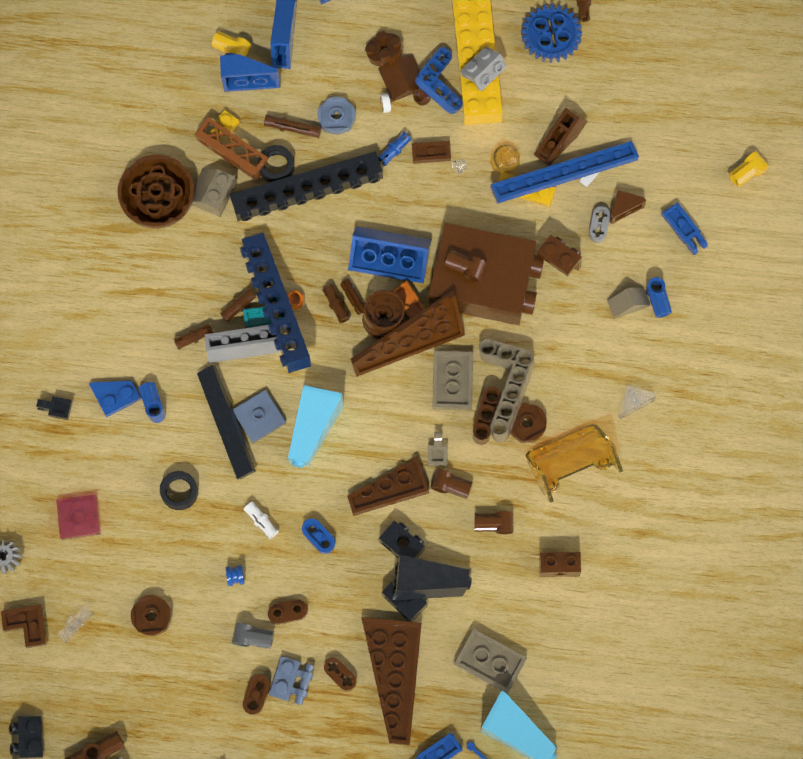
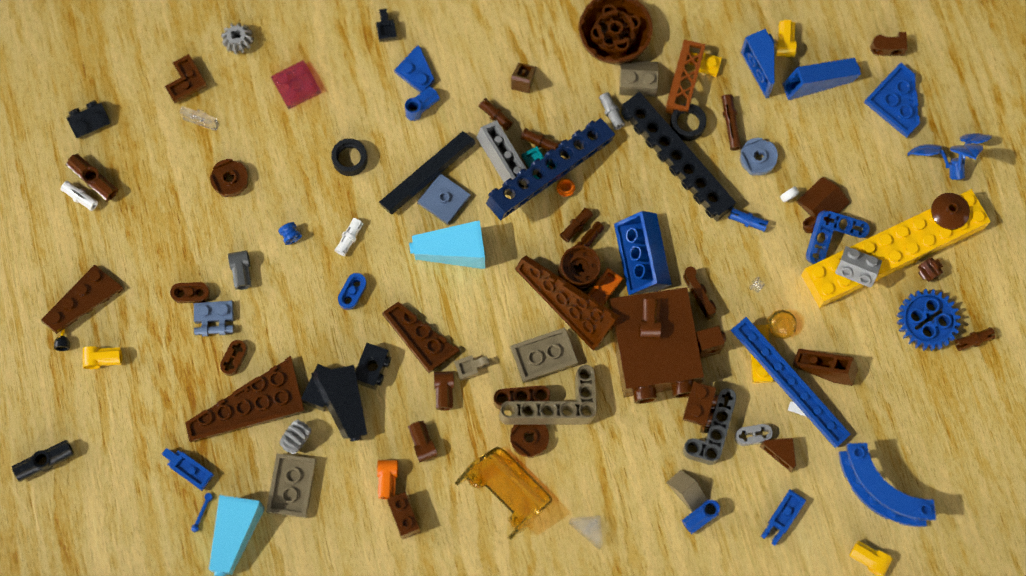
camera: 65 degrees right, 0 degrees up
(166, 296) = (522, 77): none -> reddish brown slope
(235, 228) = (611, 111): none -> light grey pin
(287, 612) = (274, 290): reddish brown plate -> none
(375, 47) = (849, 168): reddish brown plate -> none
(431, 152) = (759, 253): reddish brown plate -> none
(445, 639) = (295, 436): none -> light grey gear
(463, 217) = (699, 293): none -> reddish brown plate
(501, 221) = (710, 341): none -> reddish brown brick
(505, 12) = (930, 269): none -> reddish brown gear
(512, 565) = (387, 472): none -> orange piece
(592, 265) = (715, 426): none -> dark grey beam
(694, 139) = (878, 493): none -> blue fence

